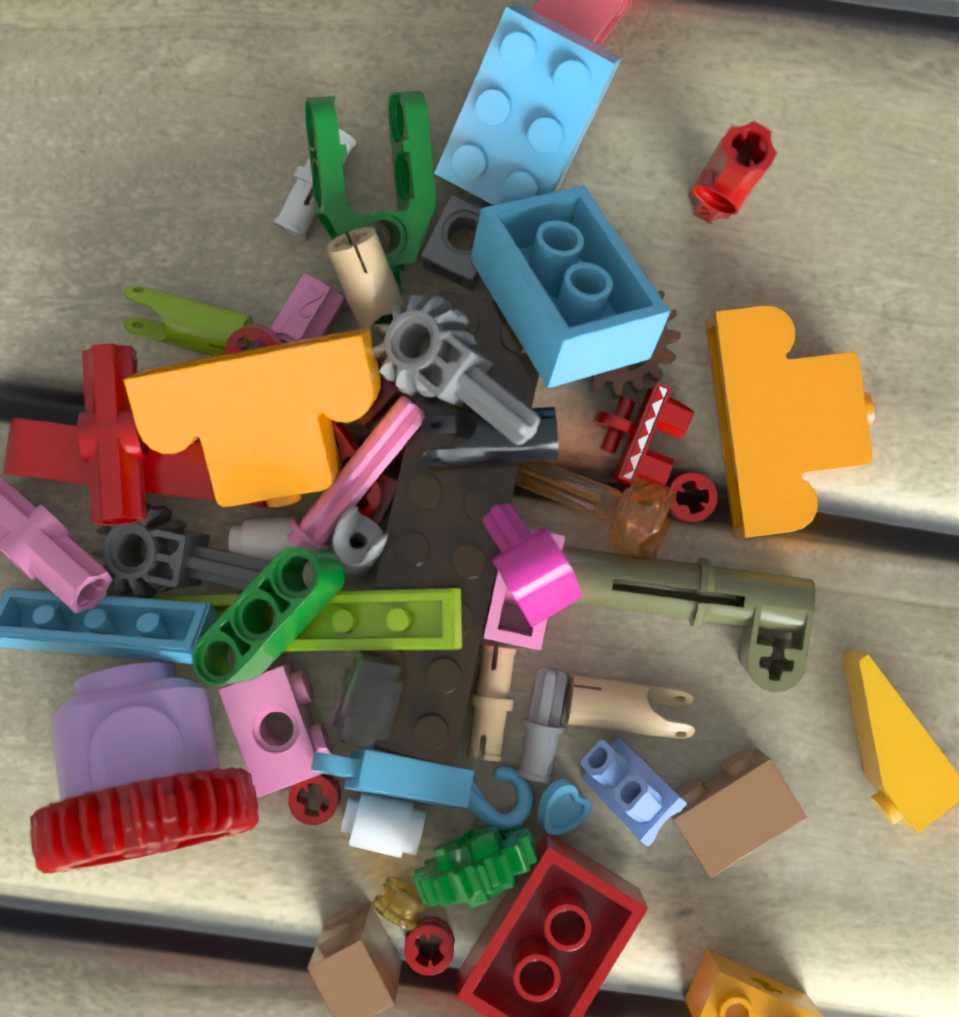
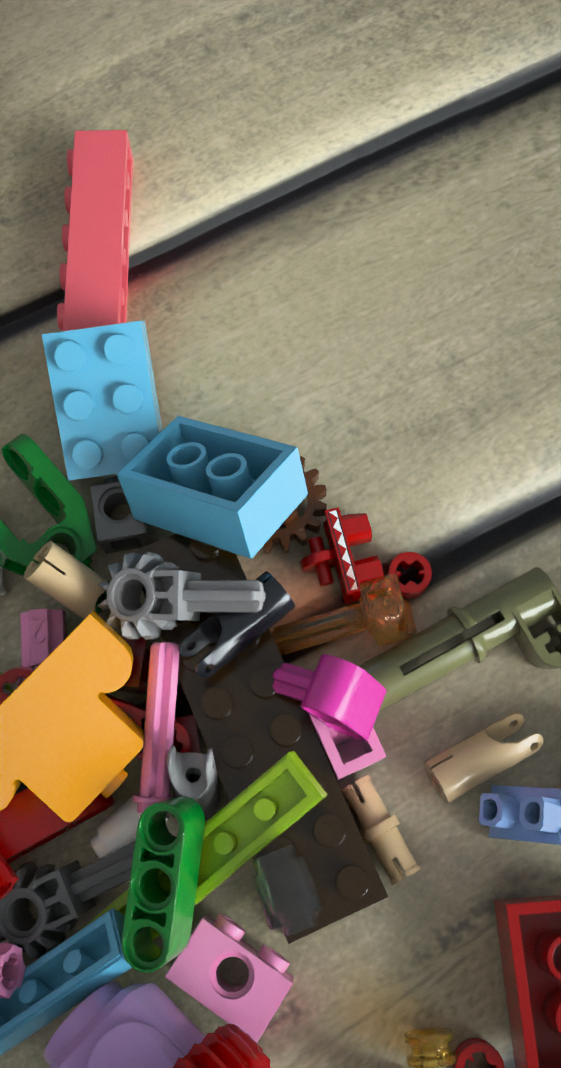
camera: 30 degrees left, 15 degrees down
(299, 805) = (294, 1027): red bush -> none
(383, 824) = (370, 990): white brick -> none
(426, 783) = (376, 931): medium azure piece -> none
(475, 866) = (464, 967): green gear -> none
(543, 725) = (431, 817): light grey axle -> none
(562, 807) = (493, 871): medium azure piece -> none
(732, 171) = (271, 339): red piece -> none
(781, 418) = (428, 478): light orange brick -> none

